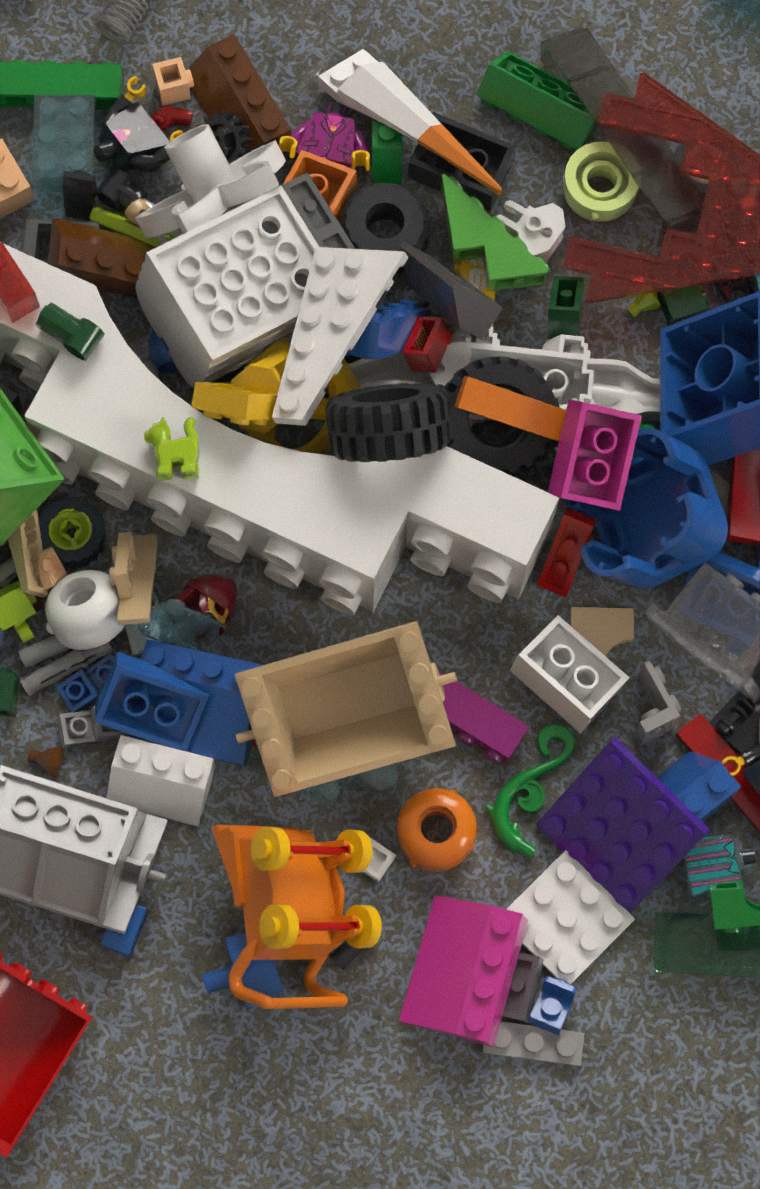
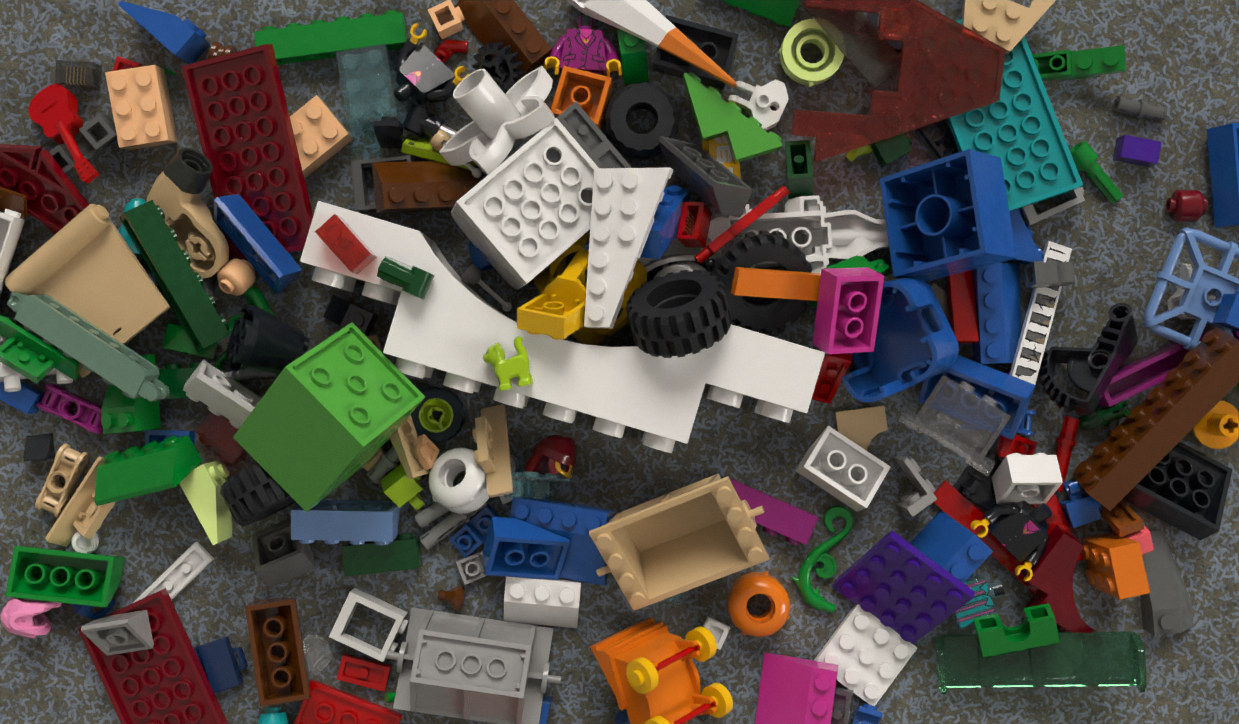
camera: 10 degrees left, 15 degrees up
(492, 345) = (741, 224): none -> red piece

